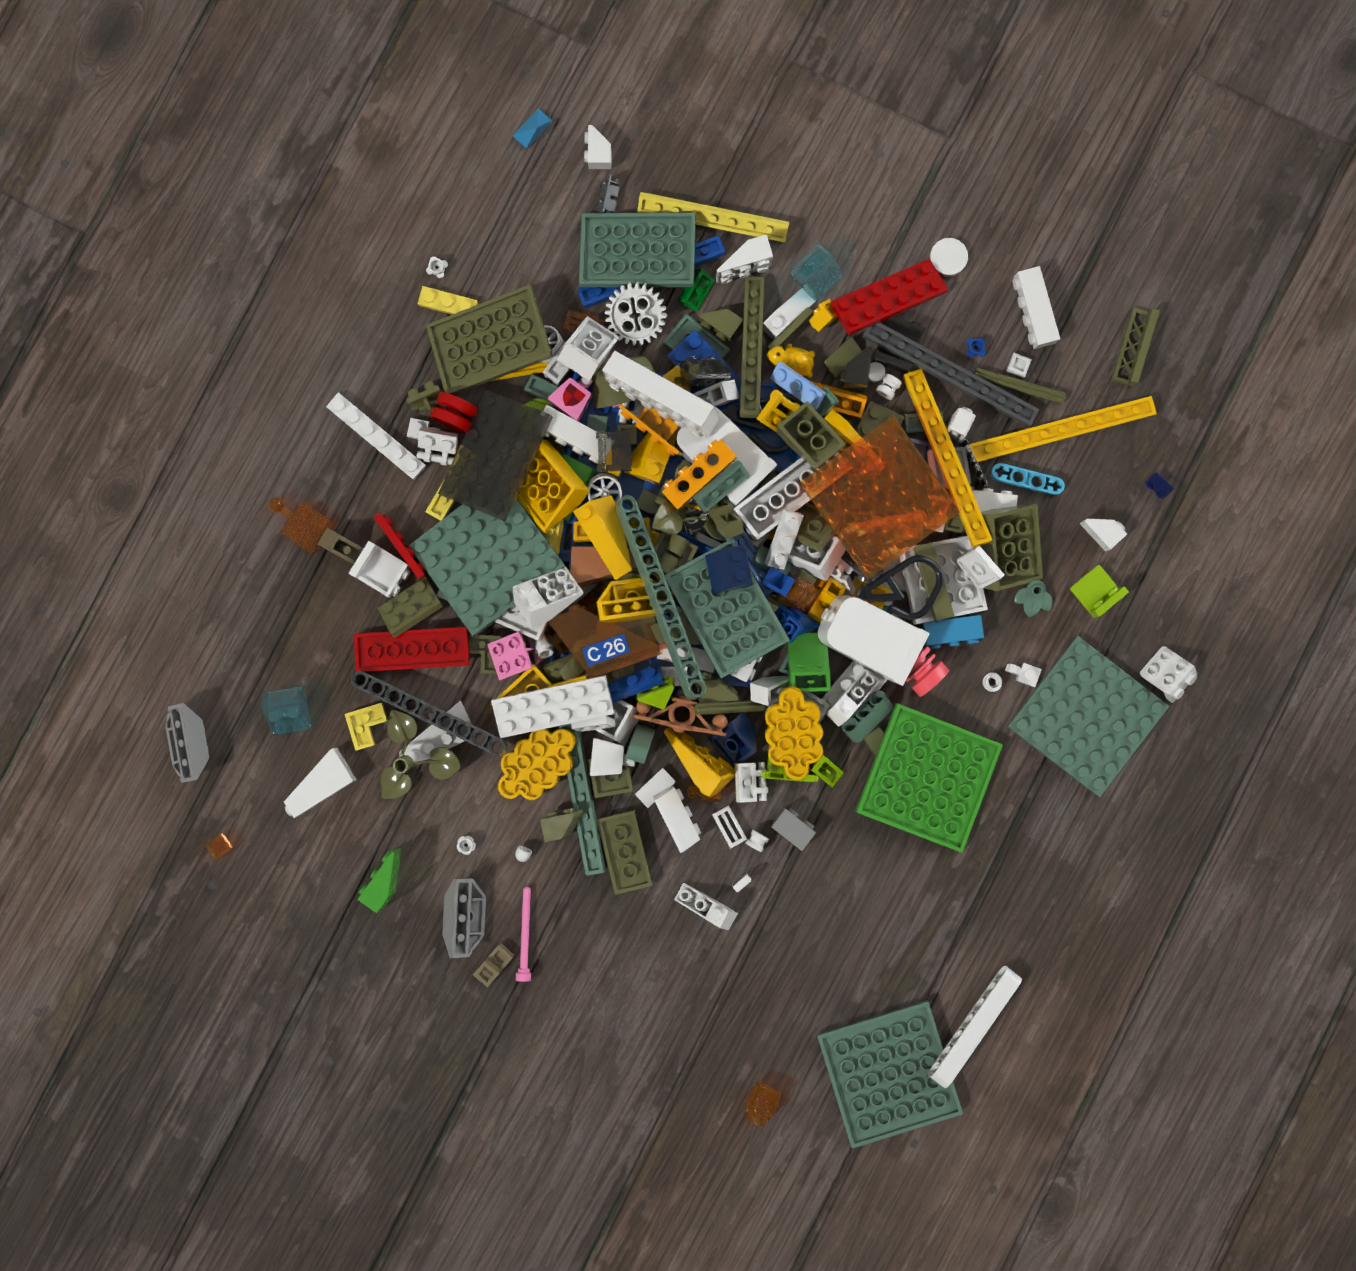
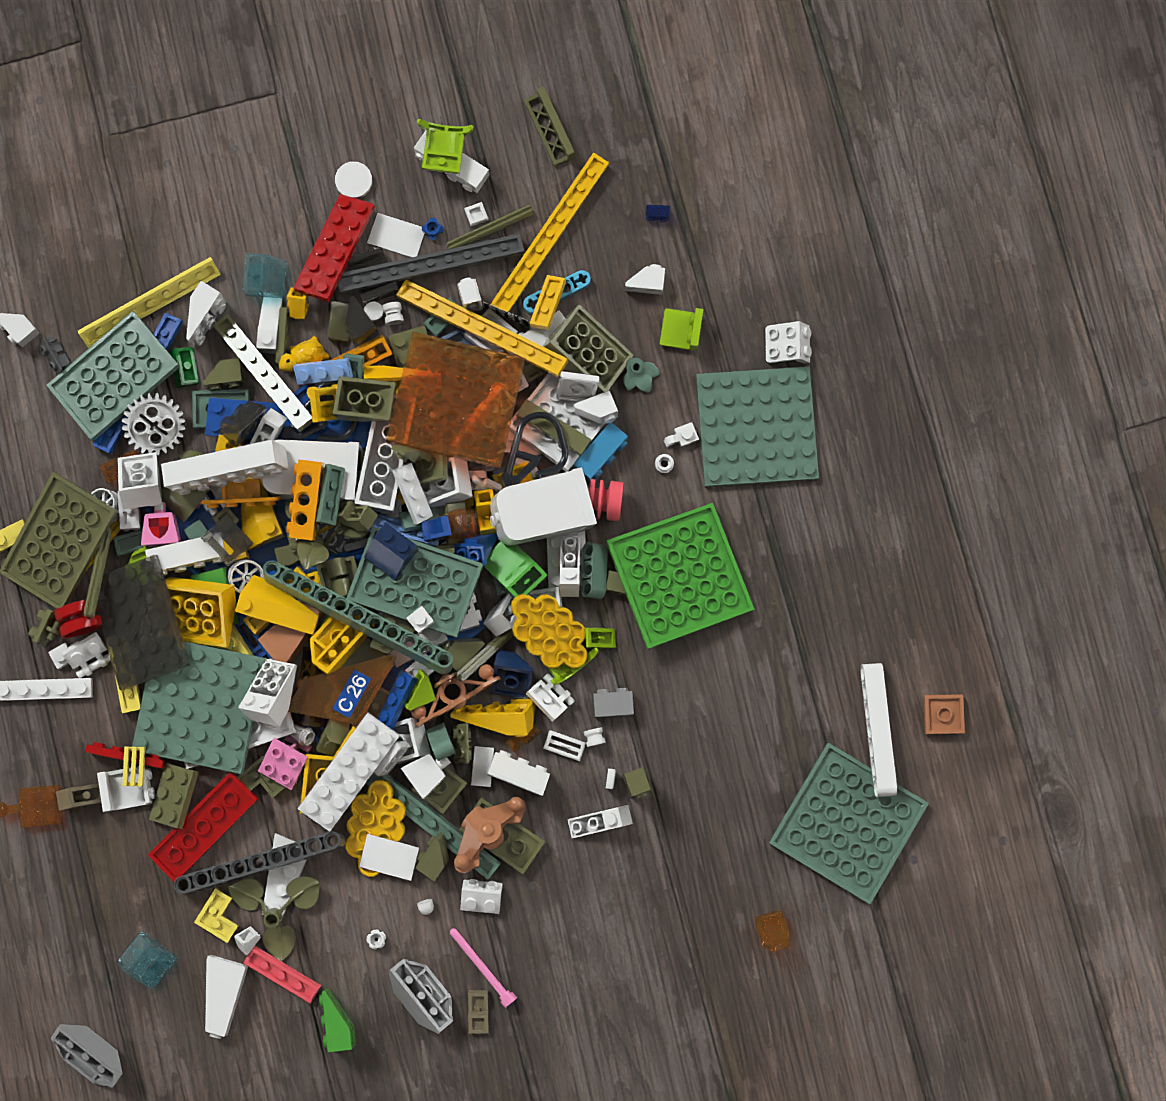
camera: 45 degrees left, 5 degrees down
(372, 761) = (247, 939): none -> white slope
(375, 809) = (282, 974): none -> coral tile
(388, 571) = (133, 766): none -> light yellow tile
(494, 393) = (97, 575): none -> olive axle
(527, 794) = (389, 857): none -> white sticker
(570, 883) = (481, 896): none -> white bracket
(615, 839) = (485, 830): none -> nougat piece
(658, 752) = (460, 735): none -> olive hinge
(705, 641) = (420, 620): none -> white plate
(758, 906) = (637, 783): none -> olive brick
(806, 504) = (413, 454): none -> olive slope
(943, 328) = (396, 235): none -> white sticker
(980, 597) = (598, 408): none -> white slope
(1014, 482) = (547, 302): none -> yellow plate
(1034, 1058) = (944, 714): none -> nougat plate
(1042, 291) = (443, 146): none -> lime piece

